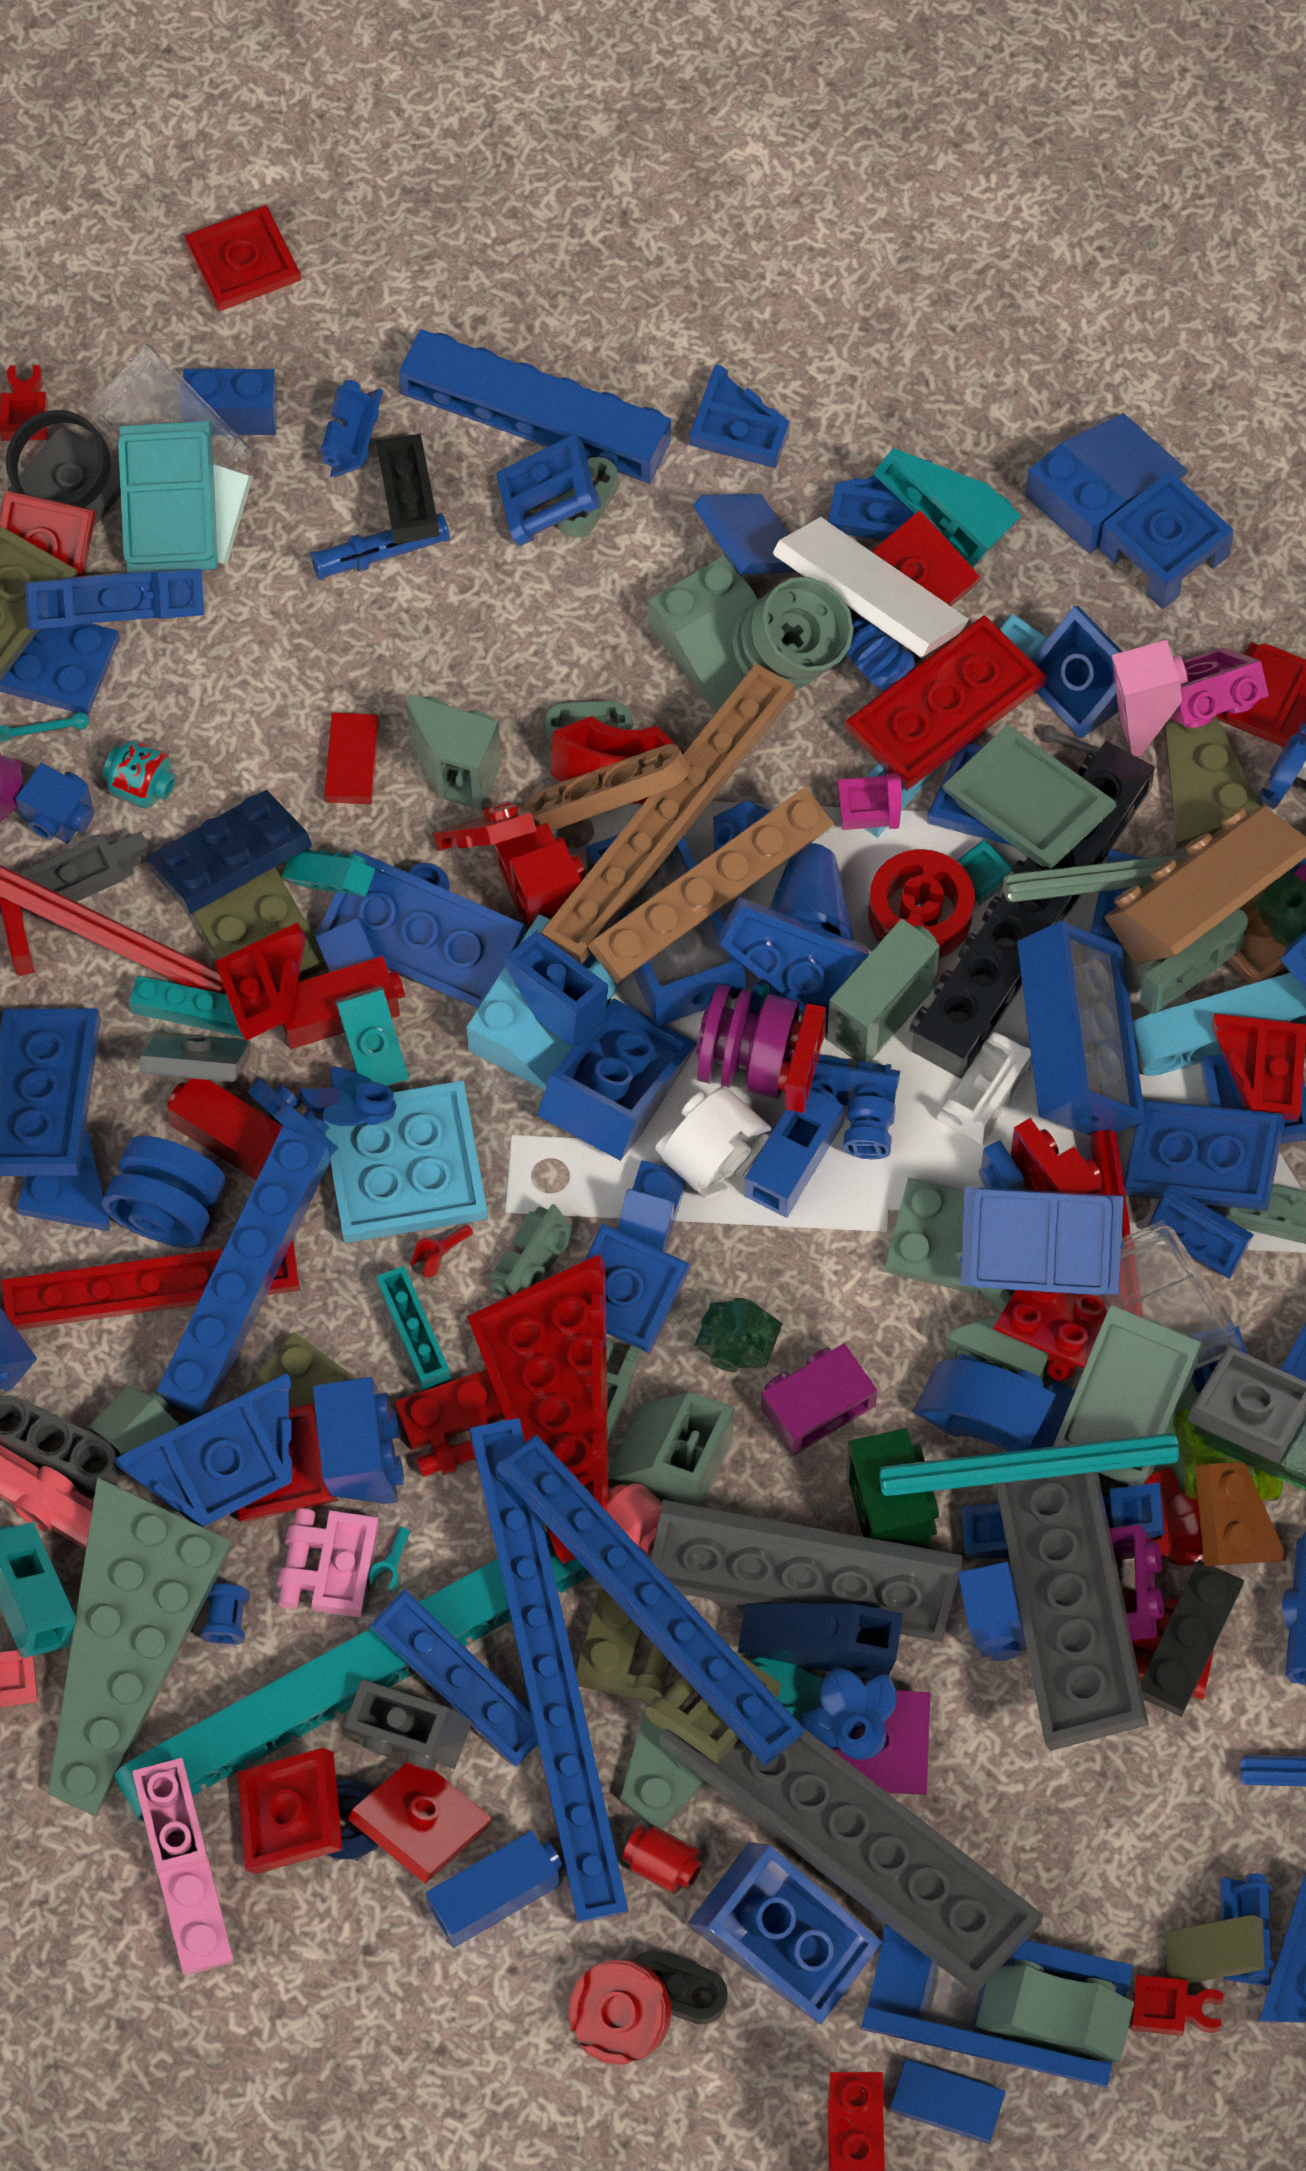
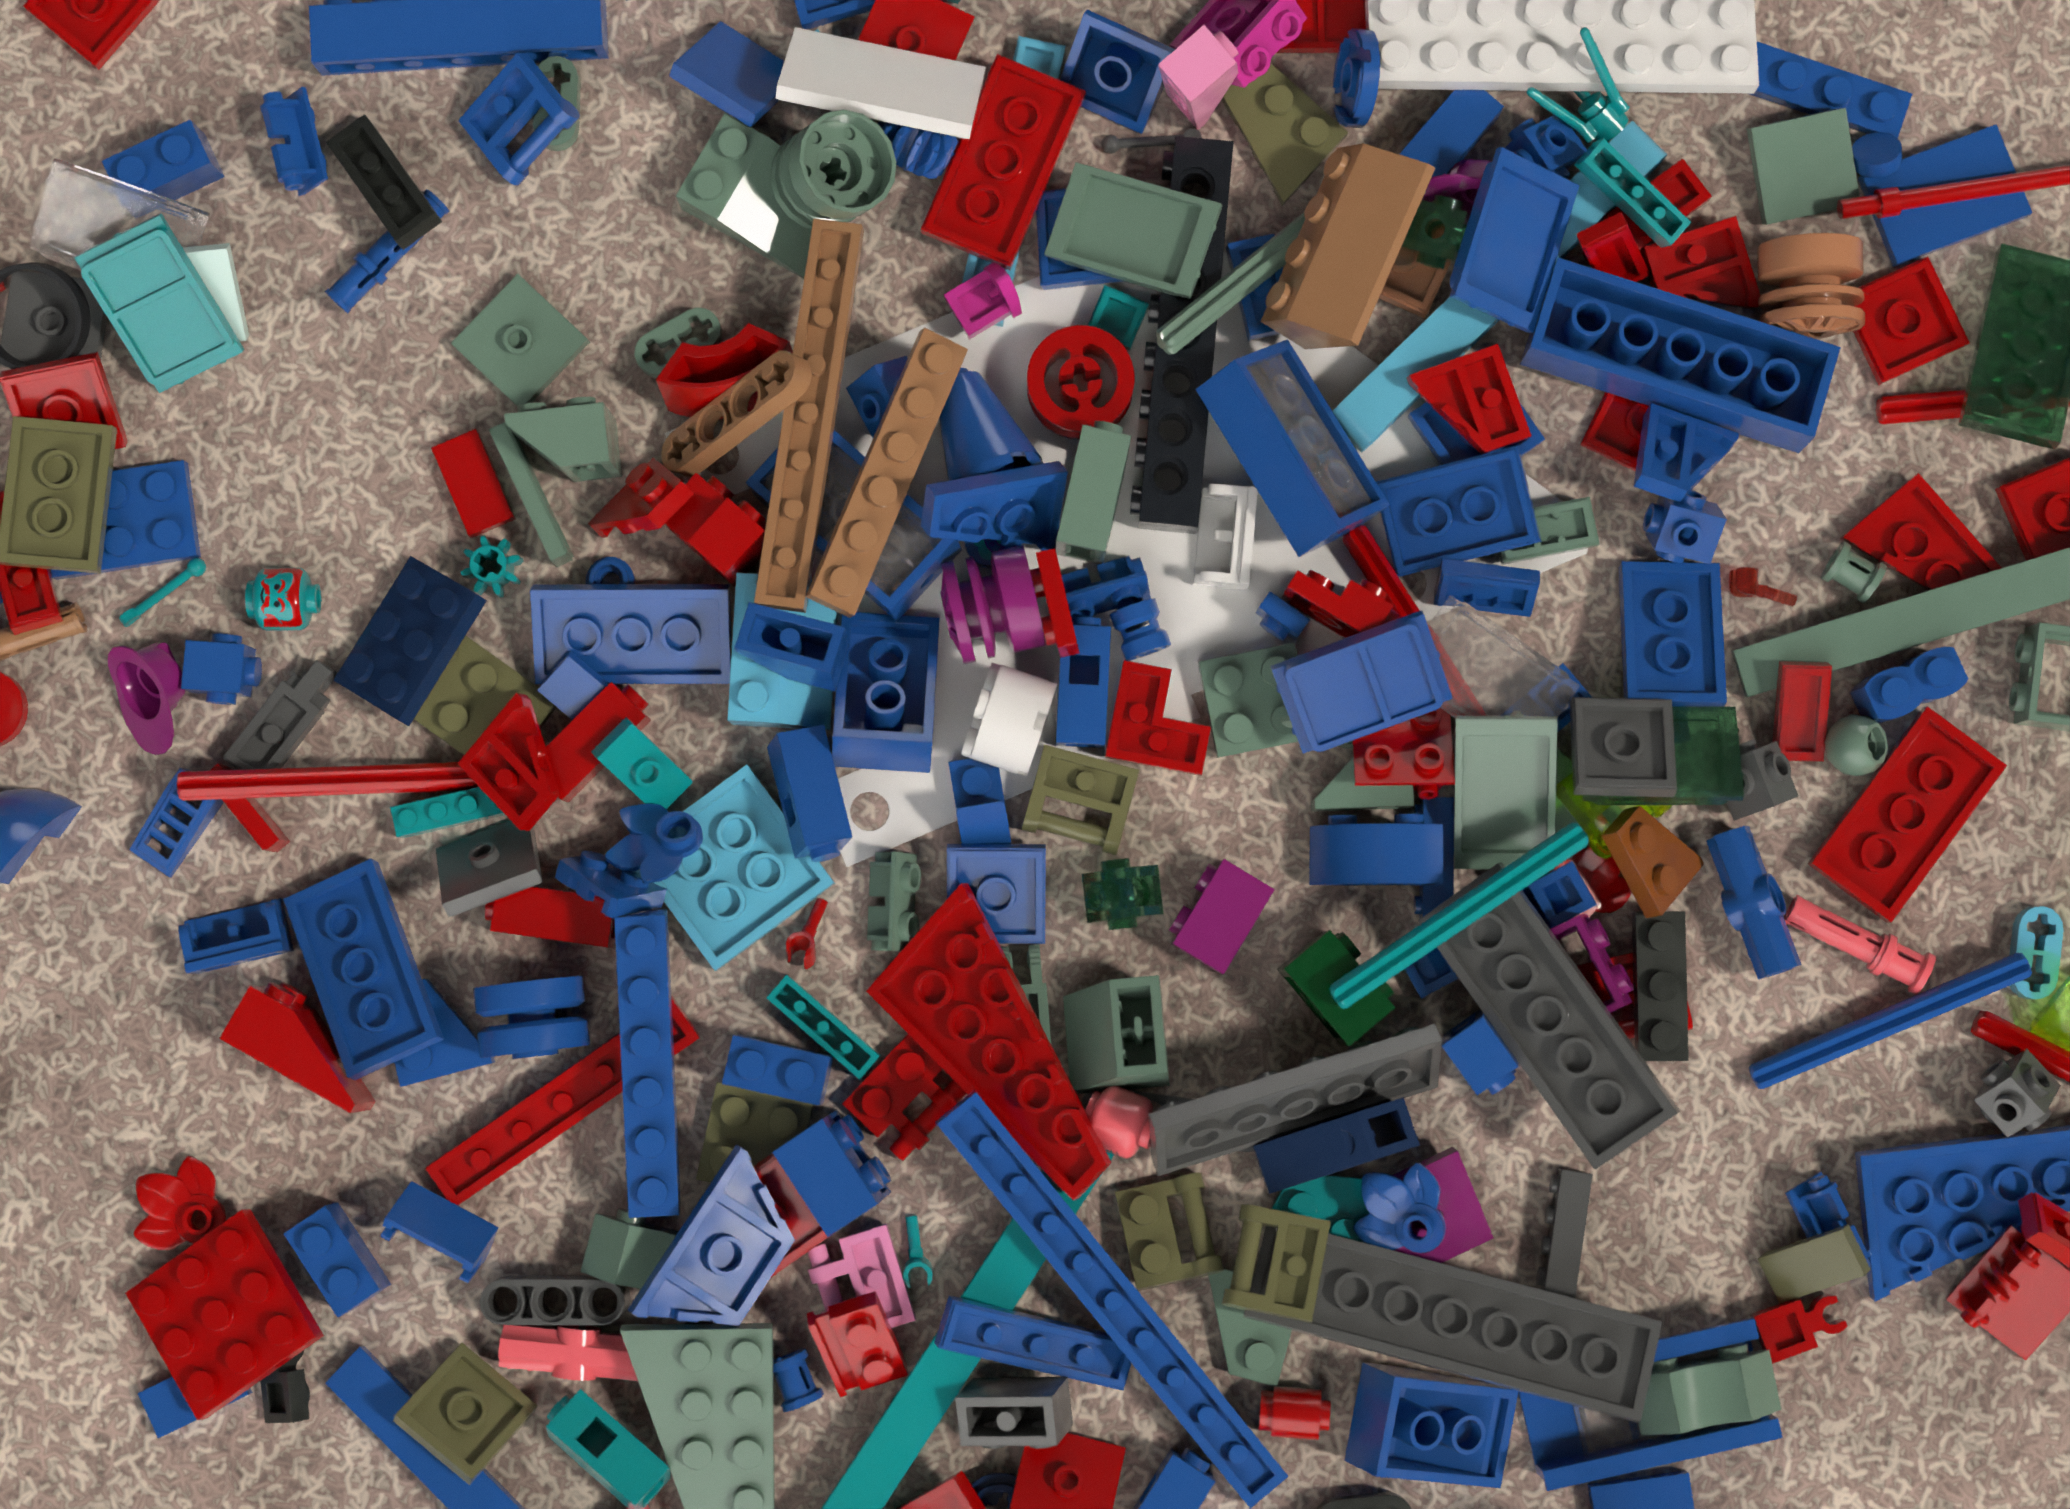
camera: 25 degrees left, 20 degrees up
(114, 598) = (159, 433): blue slope -> none
(298, 1603) = (857, 1344): none -> plate
(329, 872) = (520, 624): teal piece -> none
(341, 828) = (492, 579): none -> teal gear
(354, 1339) = (777, 1069): none -> blue brick
(397, 785) = (532, 494): none -> sand green tile
(455, 663) = (520, 342): none -> sand green plate
(506, 1123) = (809, 793): none -> blue brick
(651, 1600) = (1179, 1207): blue tile -> none
(753, 1233) = (1085, 783): none -> olive plate
(828, 1212) = (1141, 732): none -> red plate
(1001, 1812) = (1565, 1233): none -> dark grey piece
(1177, 974) = (1348, 361): sand green hinge -> none

